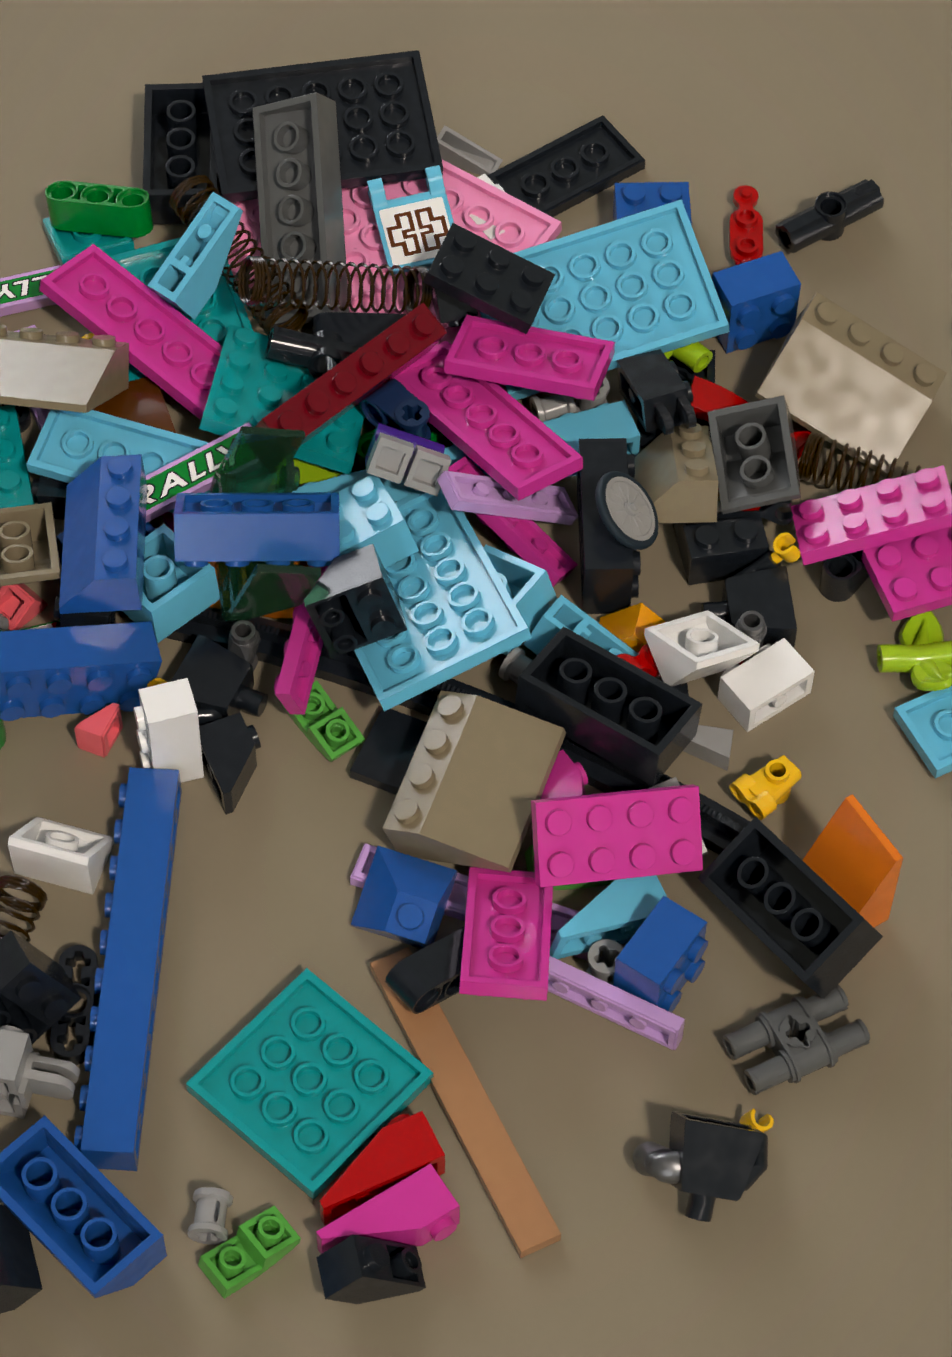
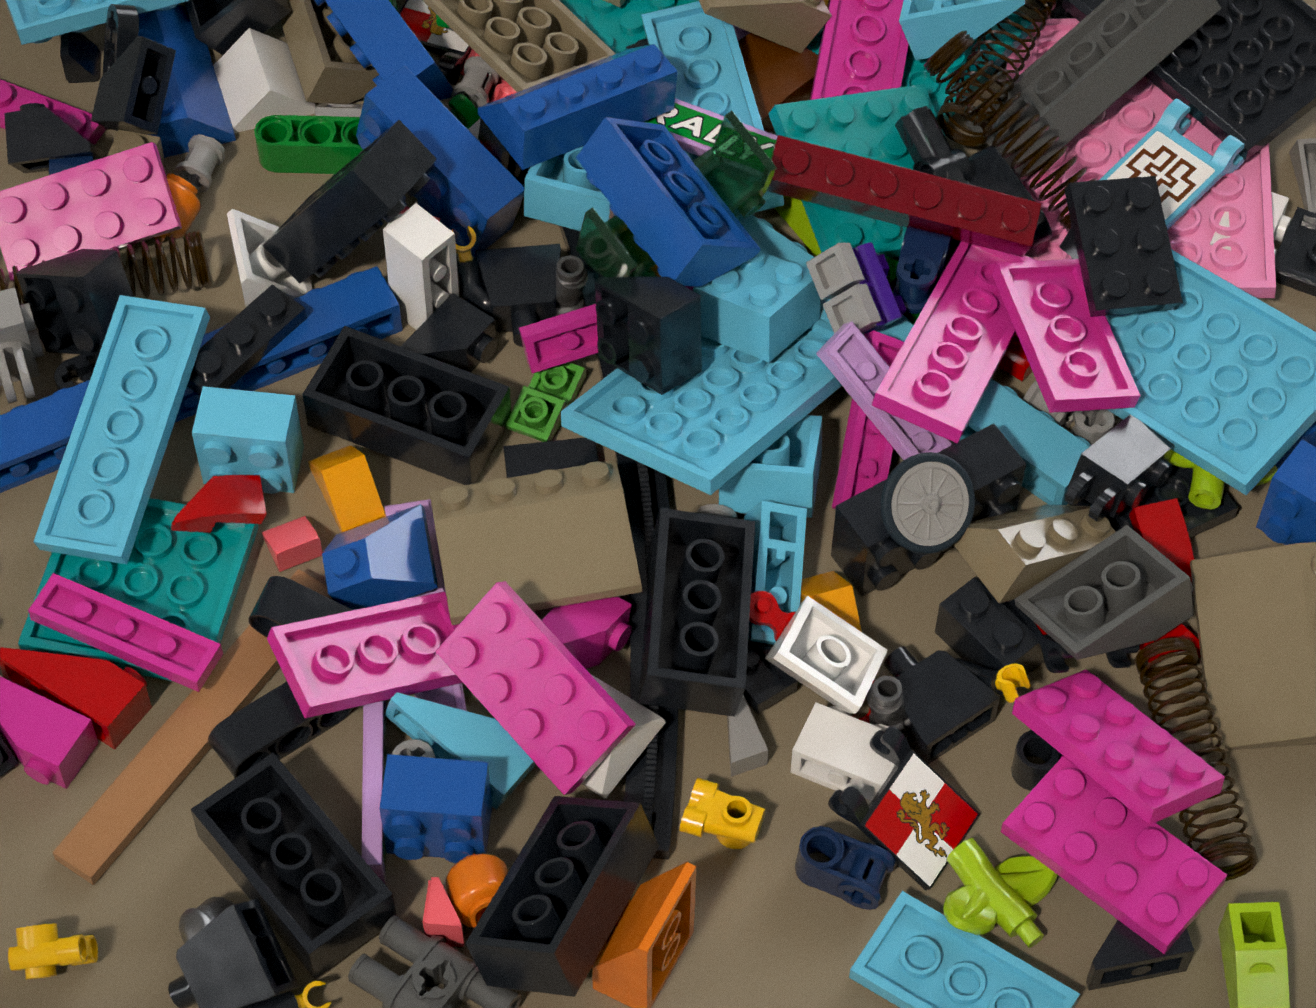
camera: 60 degrees right, 0 degrees up
(81, 744) = (352, 204): none -> black brick
(144, 895) = (246, 340): none -> black plate
(175, 1014) = (122, 430): none -> medium azure plate
(238, 935) = (249, 436): none -> medium azure brick
(277, 812) = (407, 406): none -> black brick
(285, 979) = (223, 500): none -> red slope
(312, 893) = (347, 487): none -> light orange slope
(338, 957) = (293, 543): none -> coral slope
(363, 1104) = (126, 632): none -> dark pink plate
(505, 1046) = (267, 727): none -> black beam
(608, 1294) = (41, 951): none -> yellow plate
(640, 1076) = (295, 864): none -> black brick
(736, 970) = (473, 885): none -> orange head
(739, 1004) = (441, 916): none -> coral slope
(841, 667) = (912, 813): none -> flag
(858, 733) = (847, 866): none -> dark blue piece

